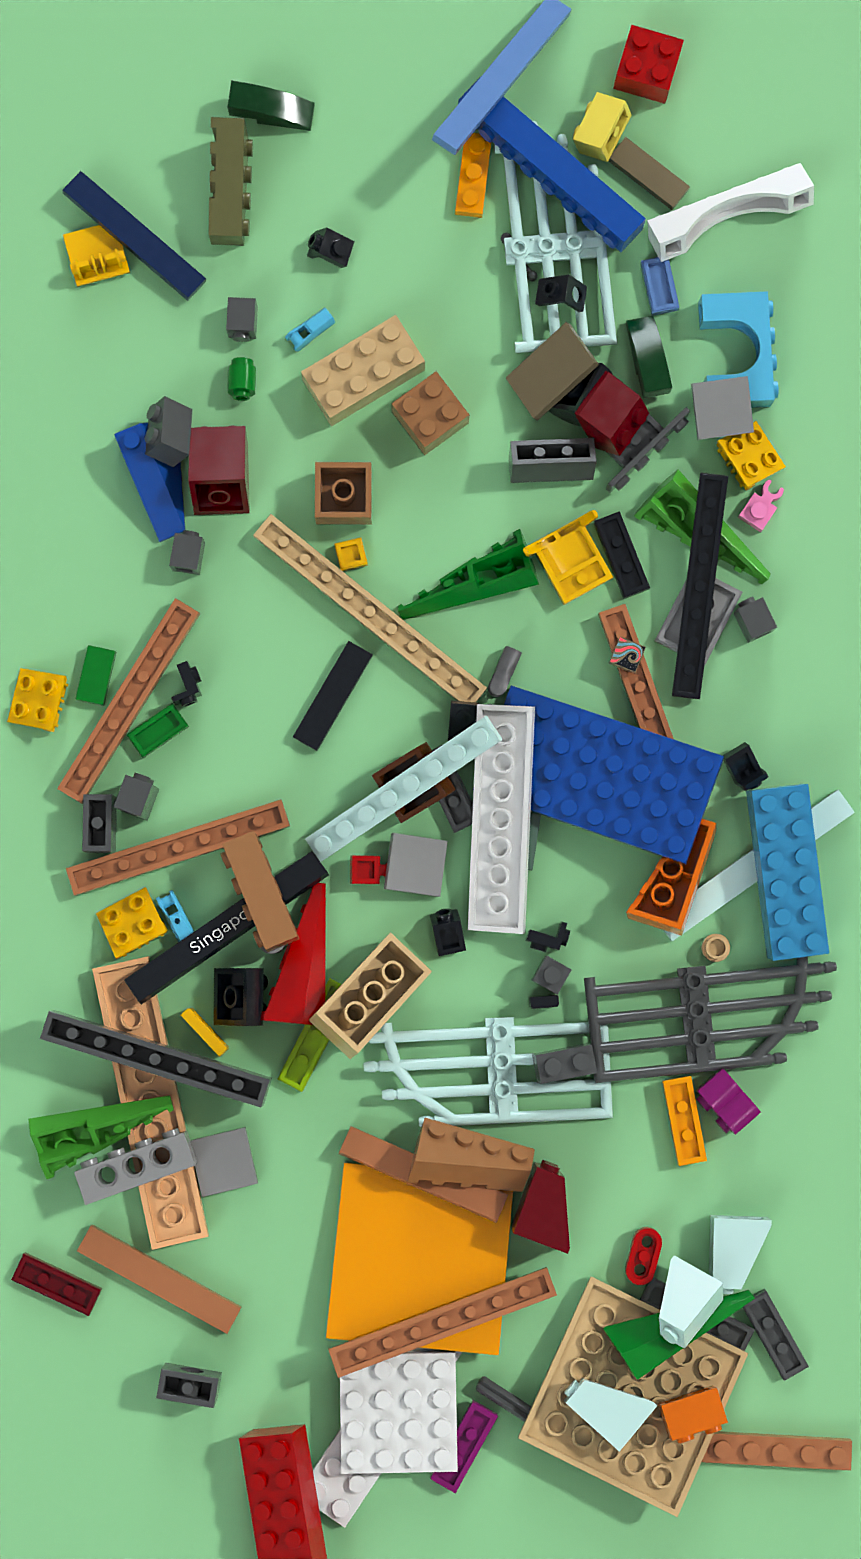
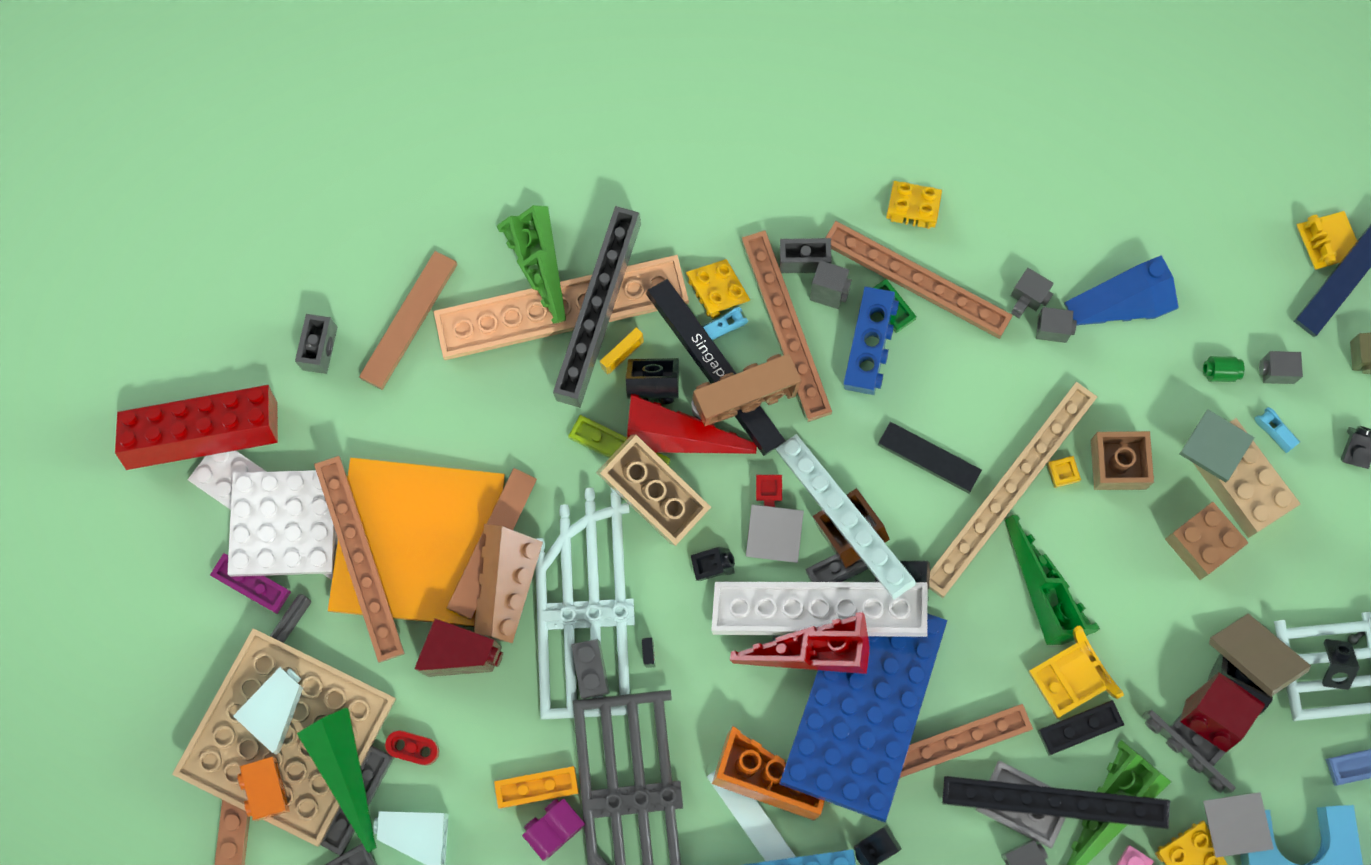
camera: 100 degrees right, 10 degrees down
(56, 1284) = (407, 236): dark red tile -> none
(95, 1188) = (488, 259): light grey brick -> none
(96, 675) = (938, 251): green tile -> none
(148, 575) = (1031, 291): none -> dark grey brick
(157, 751) = (872, 301): none -> blue brick
(168, 431) = (1168, 302): dark grey brick -> none
(190, 679) = (938, 330): black bracket -> none
(219, 470) = (1135, 349): dark red slope -> none
(224, 1162) = (508, 371): light grey tile -> none
(333, 394) = (1216, 446): none -> sand green tile
(504, 671) = (960, 614): flat silver bar -> none
(543, 941) = (704, 651): black bracket -> none
(545, 807) = (831, 647): none -> red wedge
(551, 974) = (673, 658): dark grey brick -> none
(552, 460) = (1170, 656): dark grey brick -> none
(627, 655) = (982, 730): tile -> none
(649, 357) = (1283, 753): dark green slope -> none
(687, 1302) = (366, 784): light aqua slope -> none
(715, 947) = (700, 819): tan plate -> none

